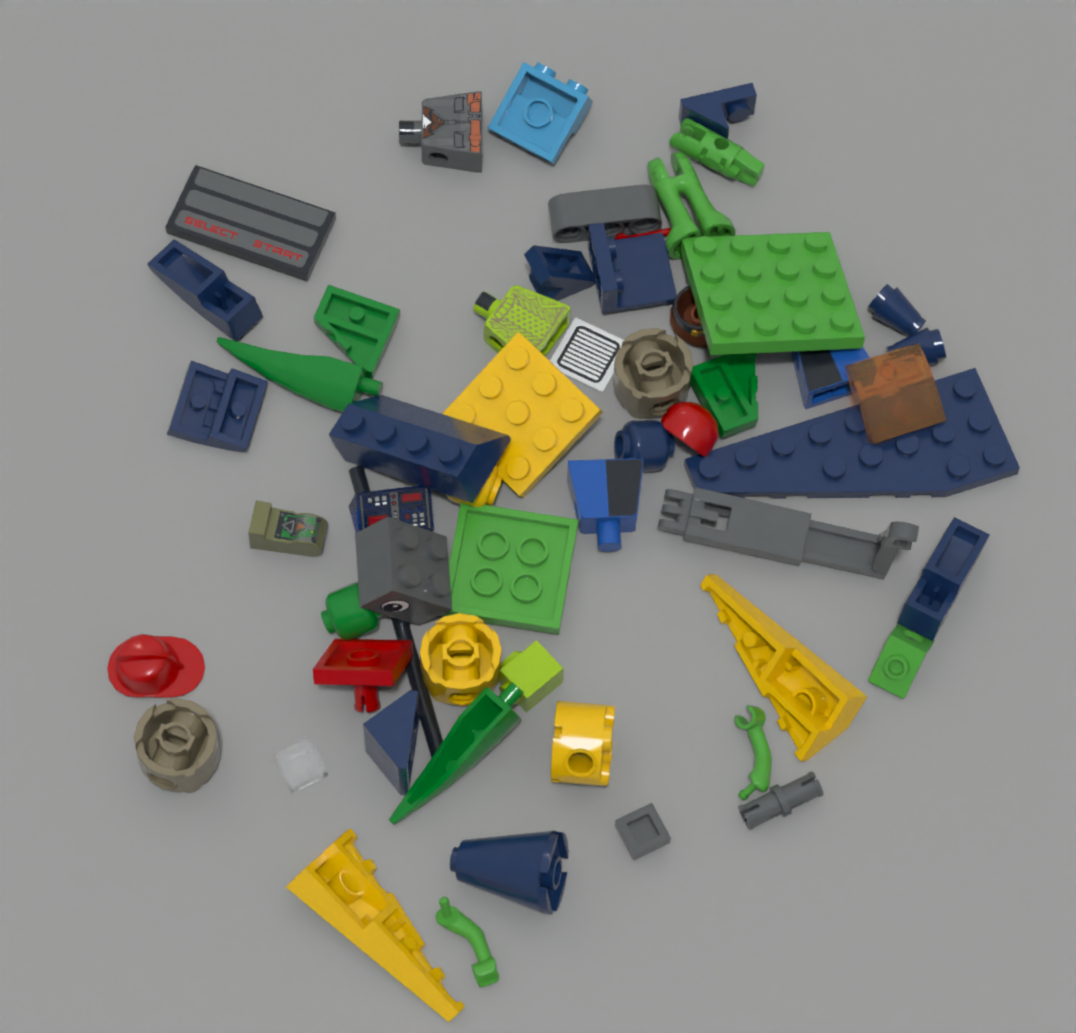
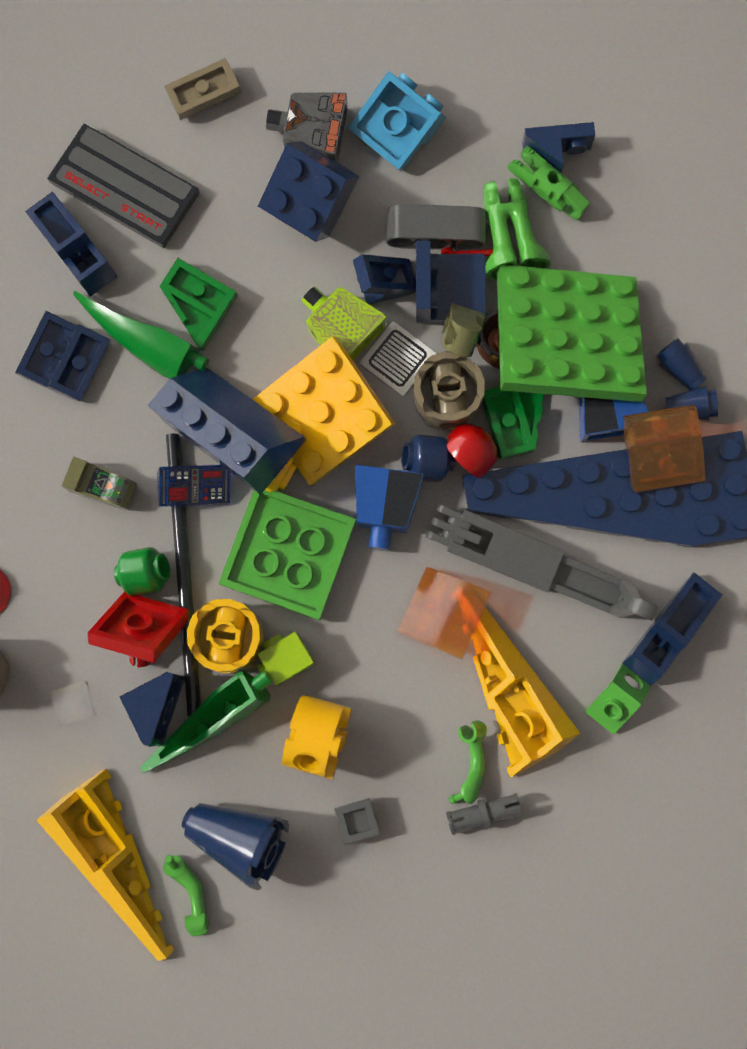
camera: 20 degrees right, 15 degrees up
(320, 111) = (203, 89): none -> dark tan plate
(403, 571) = (188, 547): dark grey brick -> none
(460, 194) = (308, 190): none -> dark blue brick
(654, 307) = (461, 330): none -> olive leg
(694, 600) = (444, 612): none -> clear orange slope

